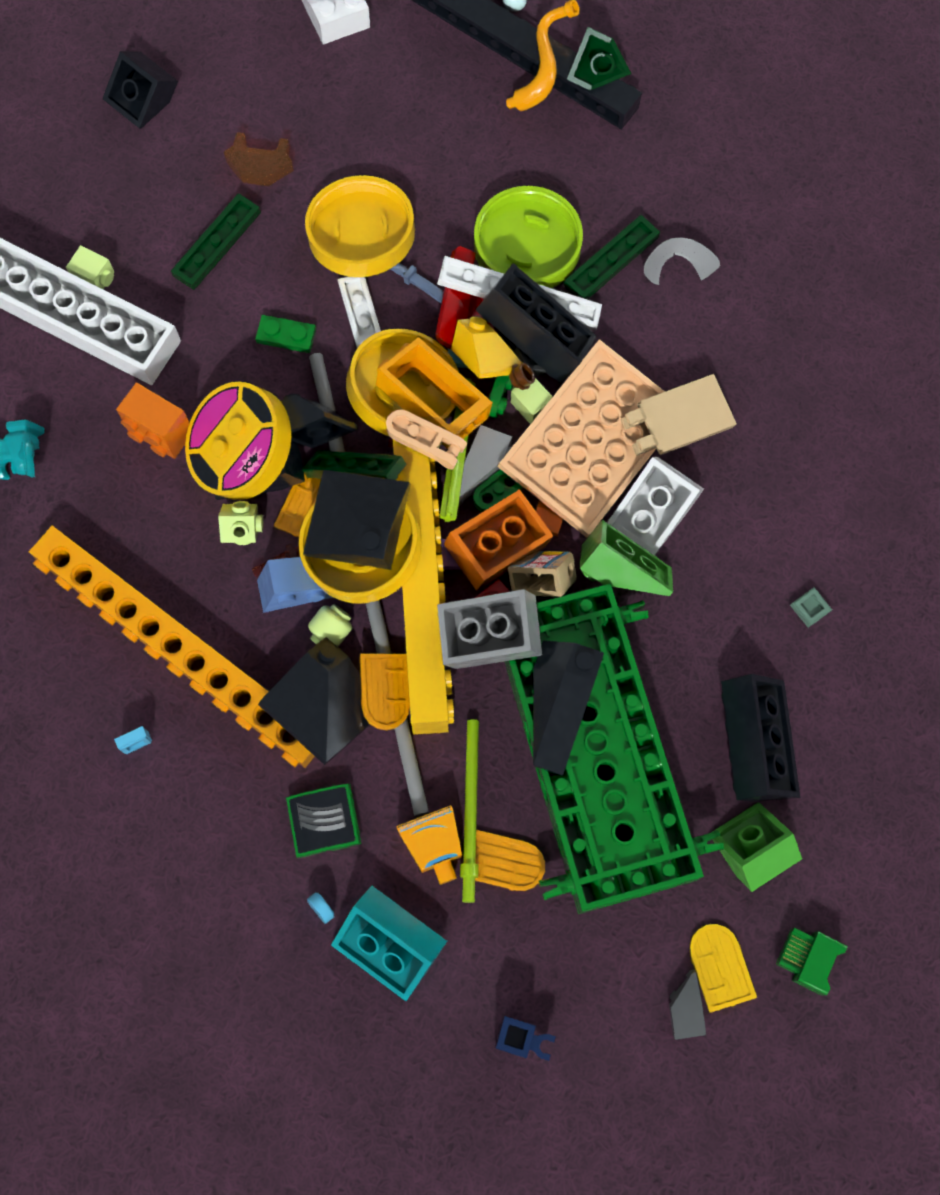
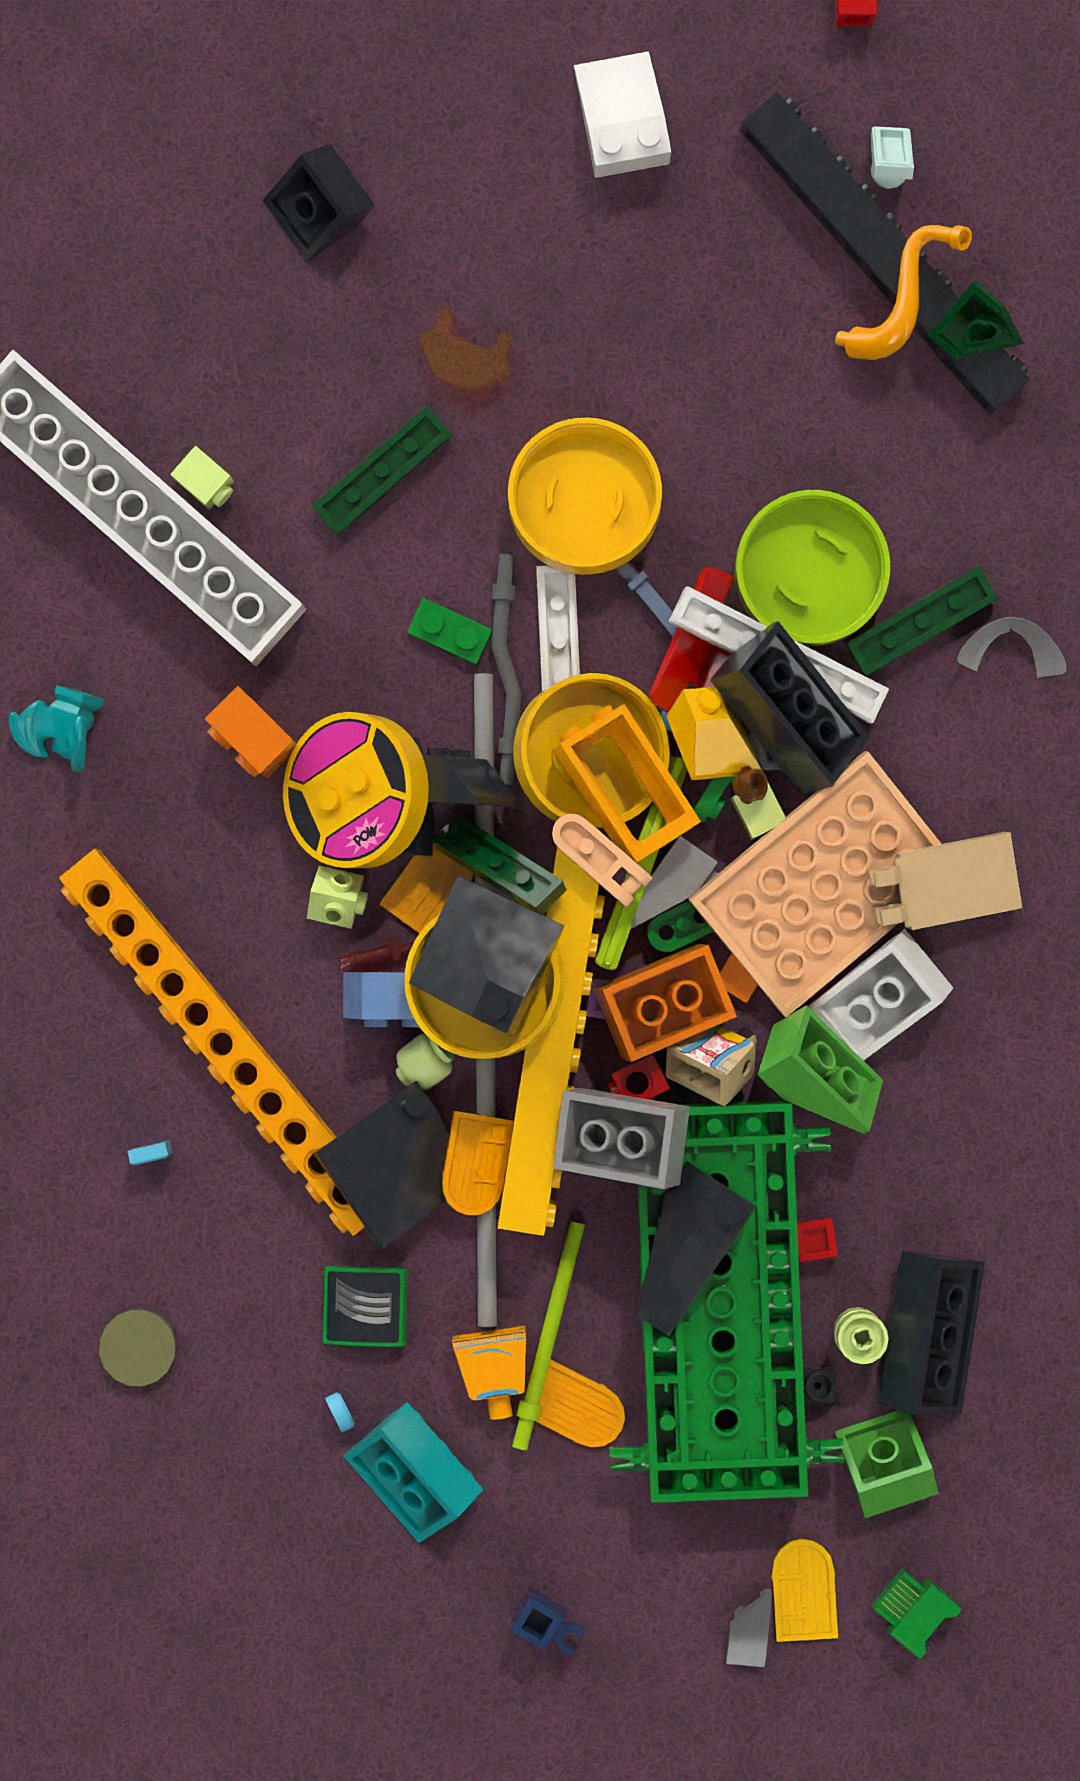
camera: 20 degrees right, 15 degrees up
(150, 896) = (138, 1347): none -> olive tile
(318, 304) = (503, 593): none -> dark grey bar
(657, 689) = (816, 1239): none -> red plate
(694, 799) = (826, 1392): none -> black plate
(708, 751) = (860, 1335): none -> yellowish green wheel
(811, 607) = (1048, 1176): sand green tile -> none

